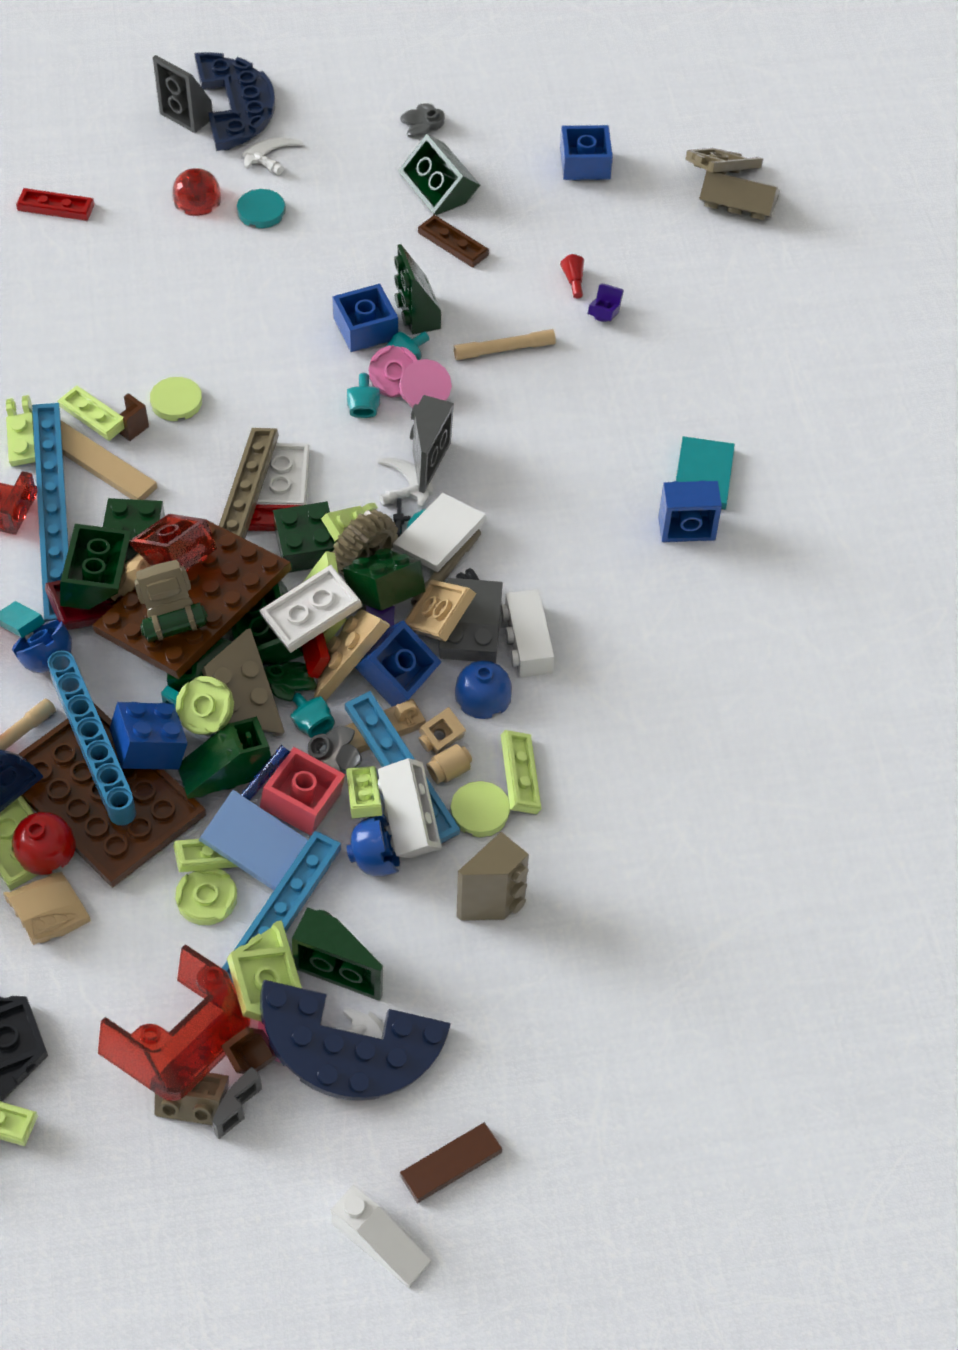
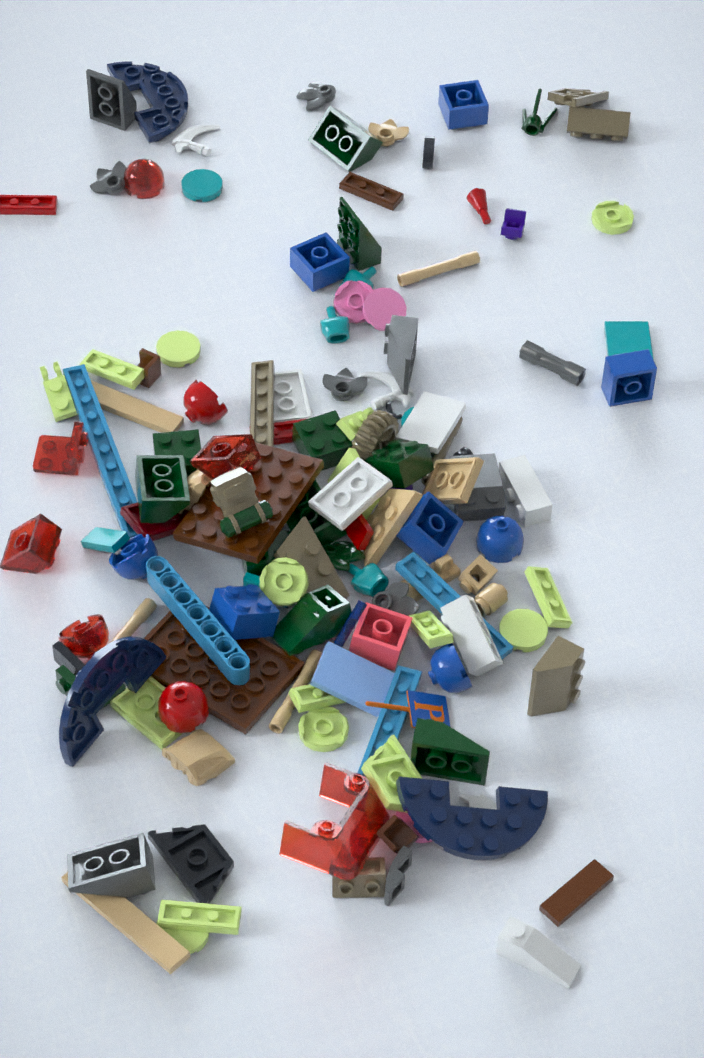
camera: 10 degrees left, 5 degrees down
(158, 188) = (110, 180): none -> dark grey plate
(166, 866) = (285, 711): none -> tan piece
(179, 471) = (203, 404): none -> red cylinder
(330, 891) = (420, 706): none -> blue piece
(354, 470) = (344, 385): none -> dark grey plate
(492, 173) = (388, 132): none -> tan plate
(531, 203) = (428, 152): none -> black beam
(620, 489) = (539, 356): none -> dark grey axle
(663, 185) = (533, 125): none -> dark green plant
(727, 311) = (612, 217): none -> yellowish green tile

